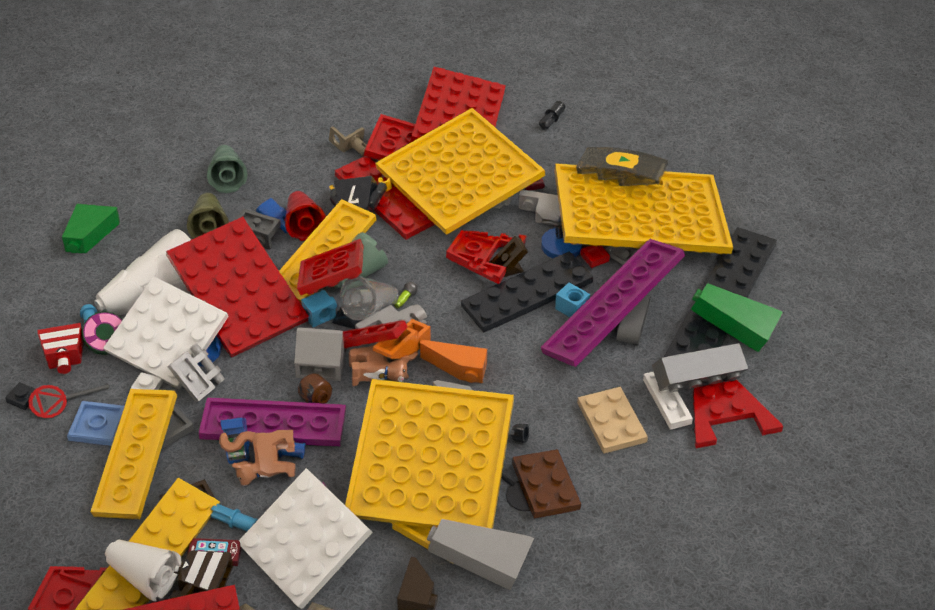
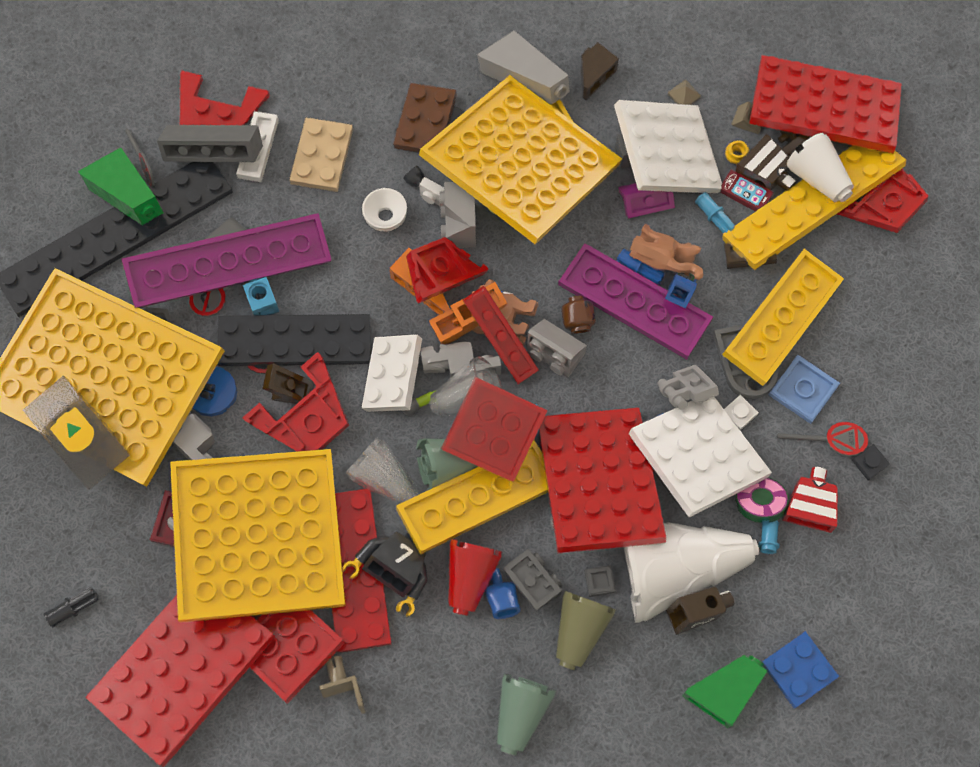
camera: 150 degrees left, 25 degrees up
(38, 260) = (799, 669): none -> blue plate
(124, 249) = (698, 609): none -> dark brown torso
(239, 575) = (738, 146): none -> yellow plate
(402, 237) = (382, 473): none -> clear cone
(437, 295) = (392, 373): none -> white plate
(446, 355) = (440, 268): none -> red wing
(526, 387) = (382, 200): none -> white piece
(734, 336) = (144, 163): none -> dark grey piece

